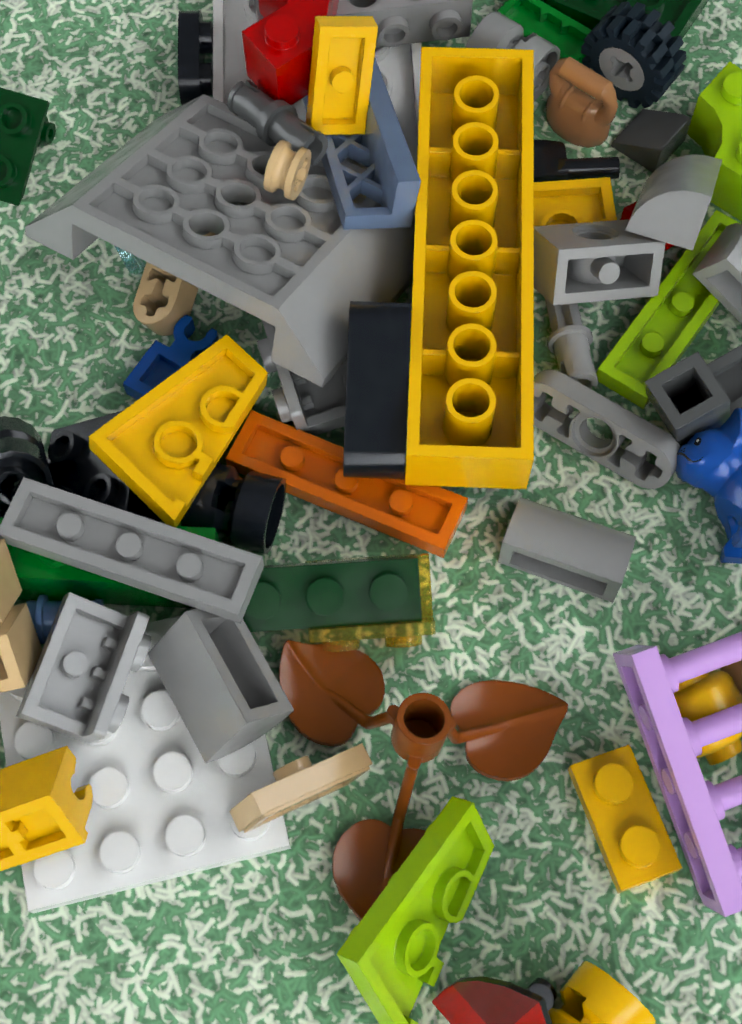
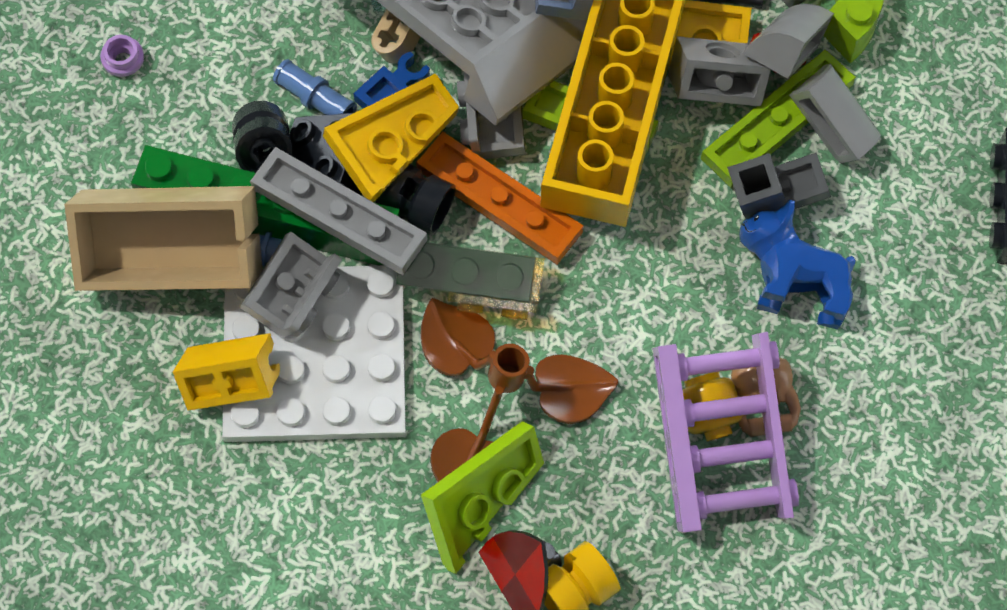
camera: 10 degrees right, 0 degrees up
(66, 390) = (312, 90): none -> medium blue pin
(219, 682) = (380, 313): light grey brick -> none
(299, 785) = (420, 393): tan plate -> none
(377, 390) = (532, 134): black beam -> none
(566, 549) = (645, 275): light grey brick -> none
(571, 343) = (688, 133): light grey axle -> none
(622, 422) = (707, 223): light grey beam -> none
(624, 818) = (637, 463): yellow plate -> none

